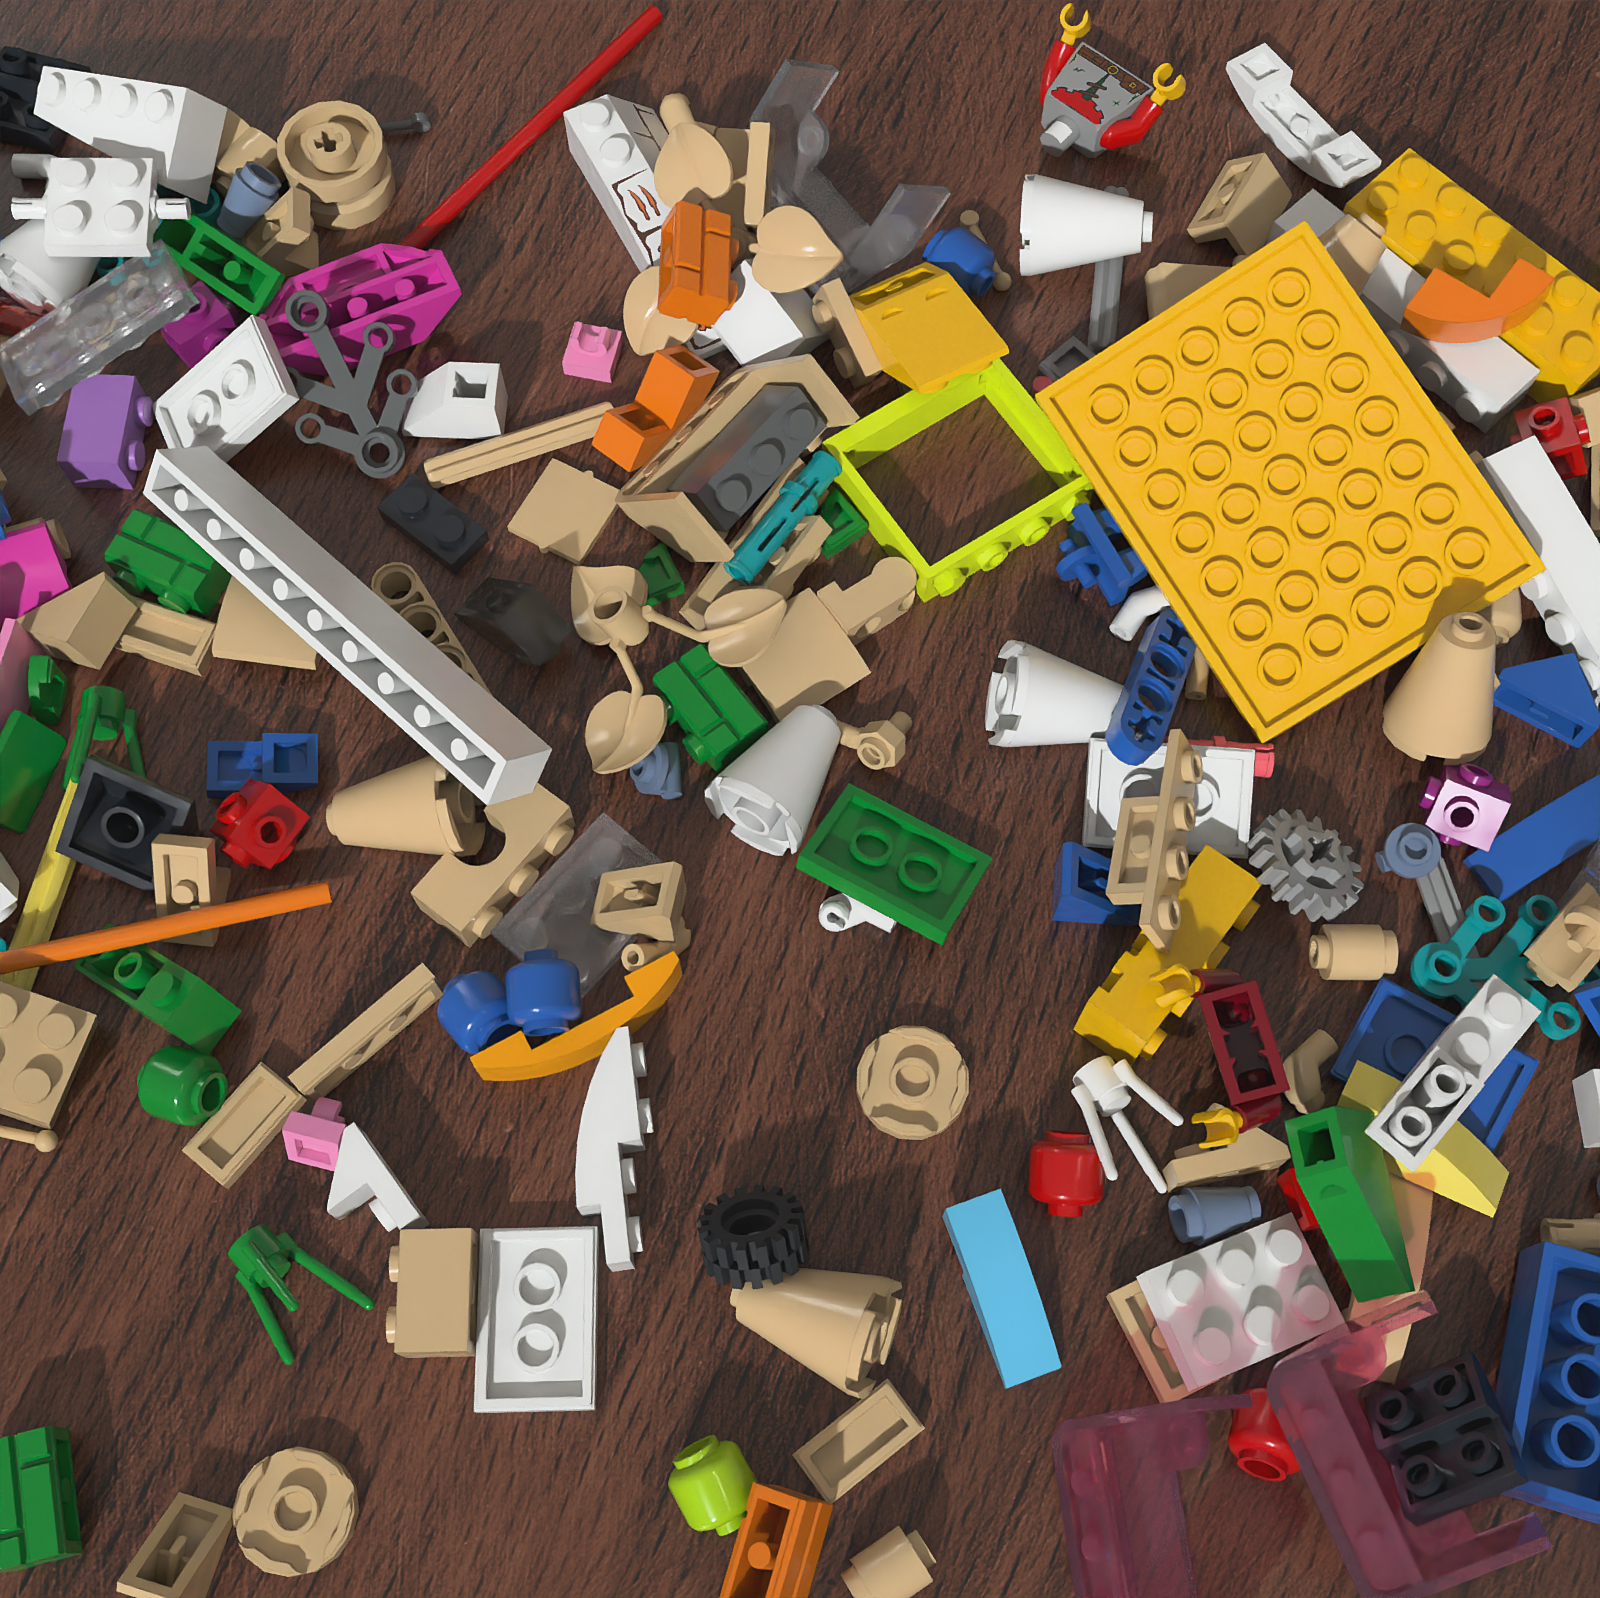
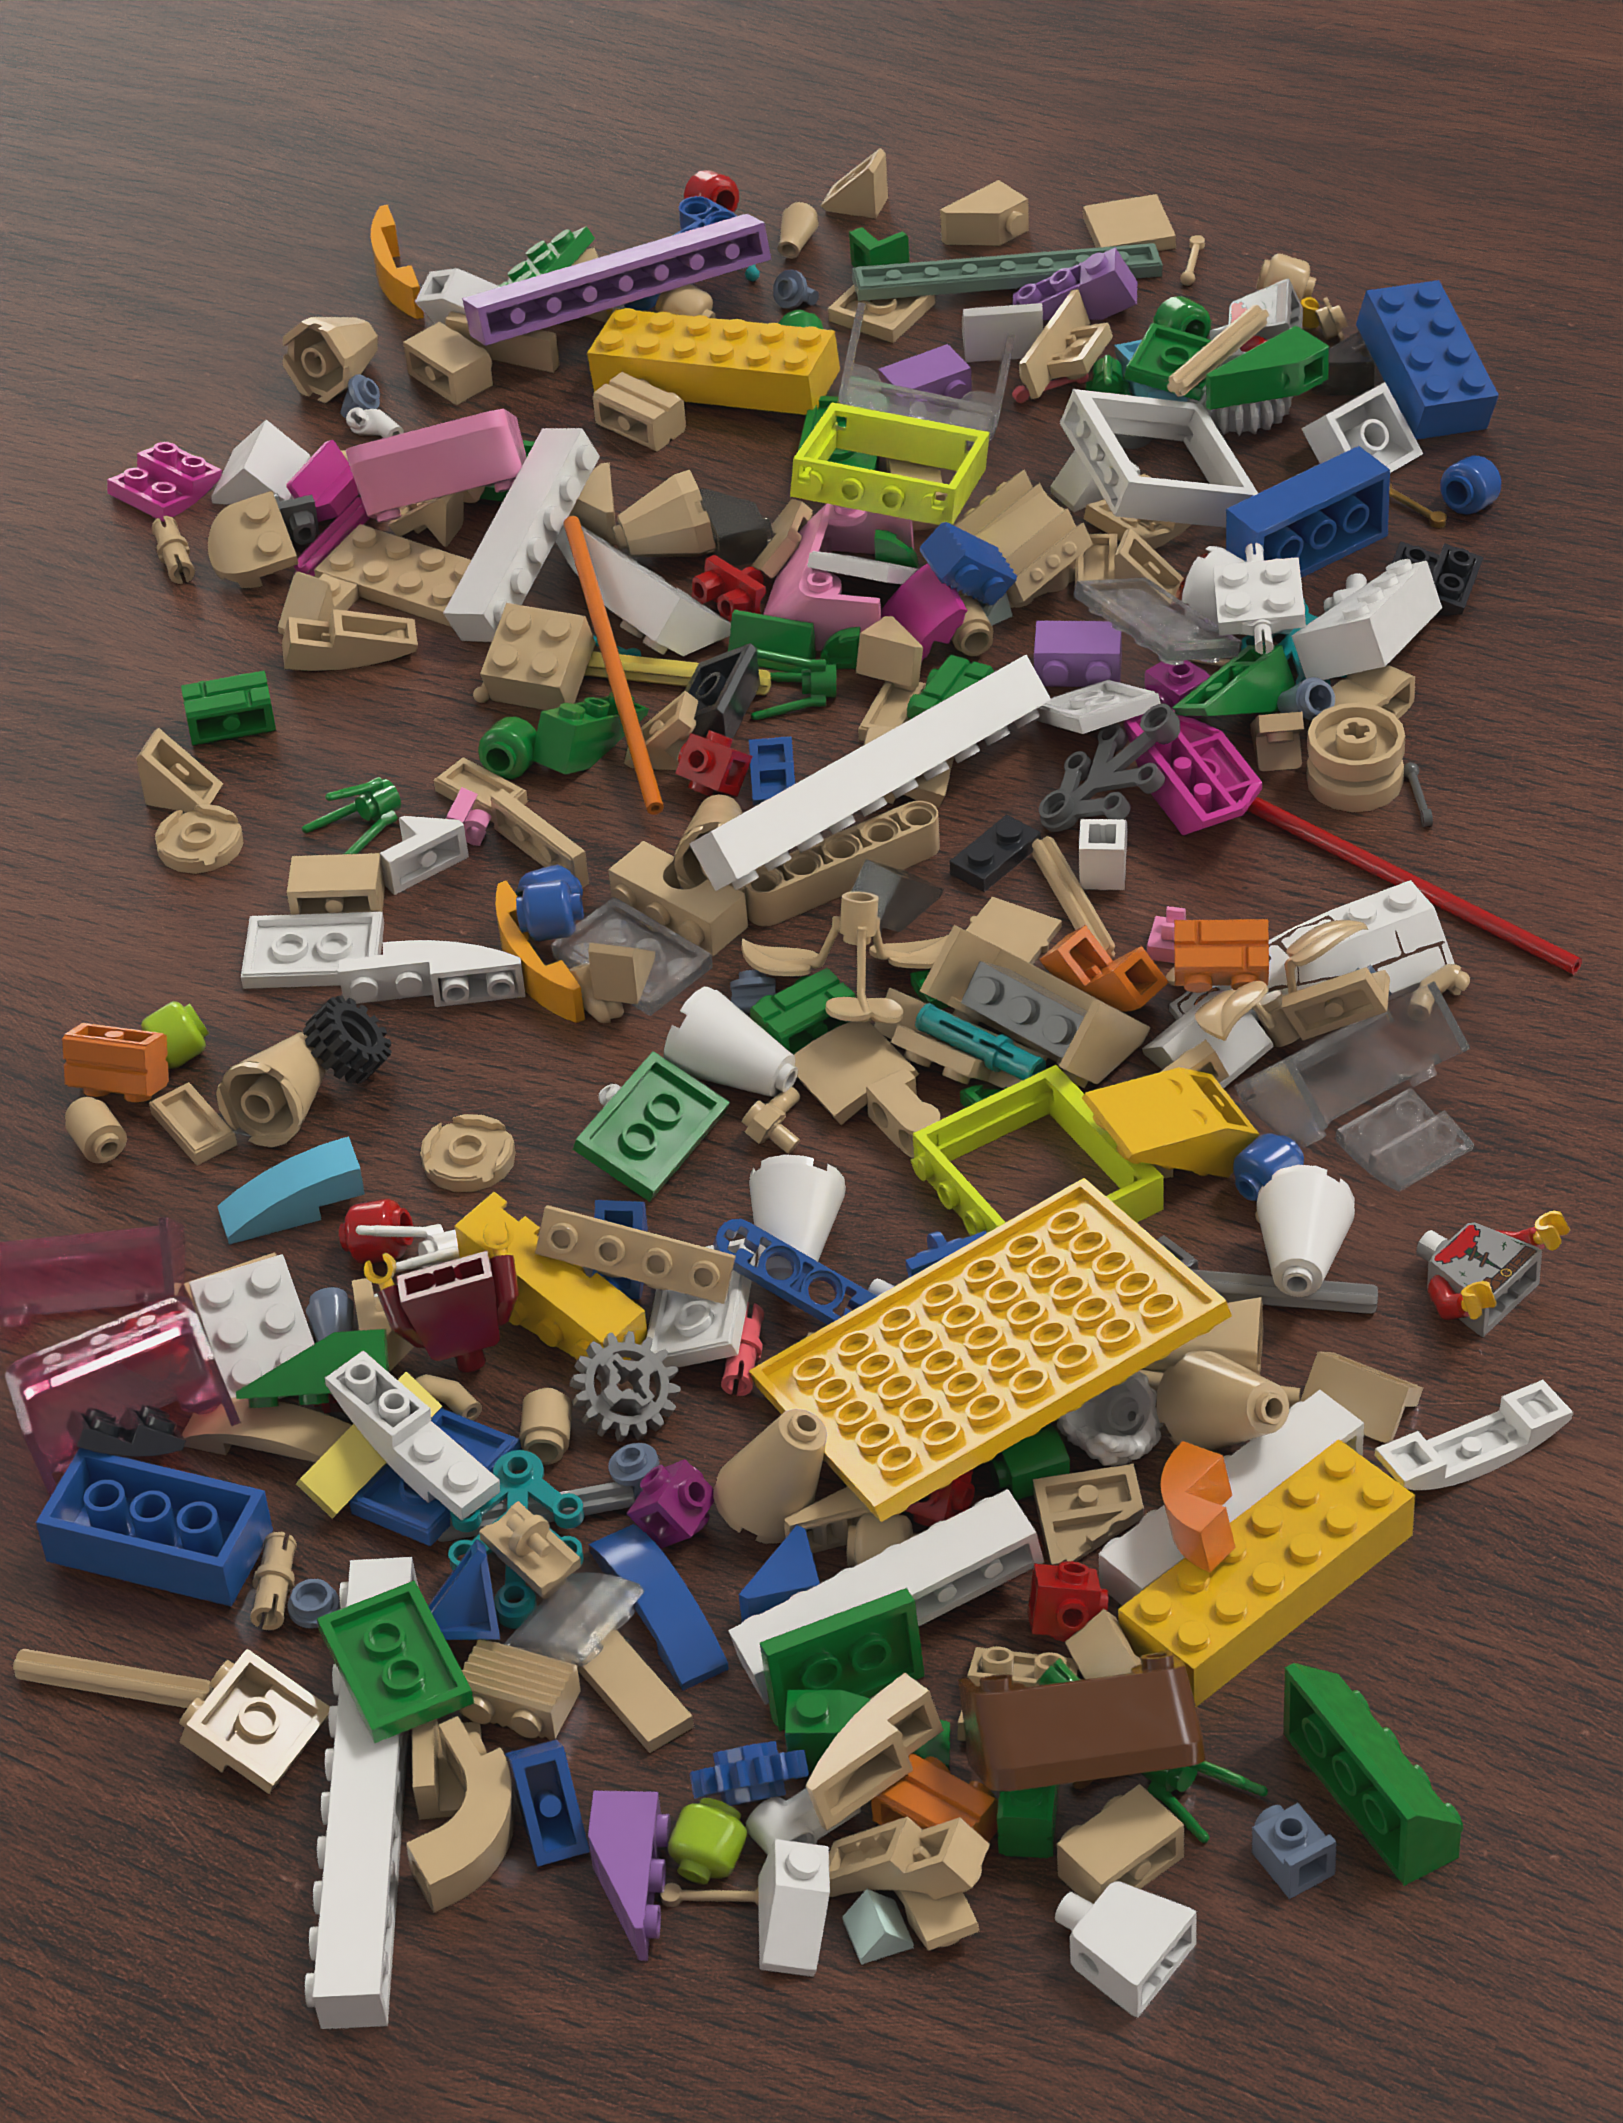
camera: 95 degrees right, 25 degrees down
(900, 151) = (1403, 1140): none -> clear slope

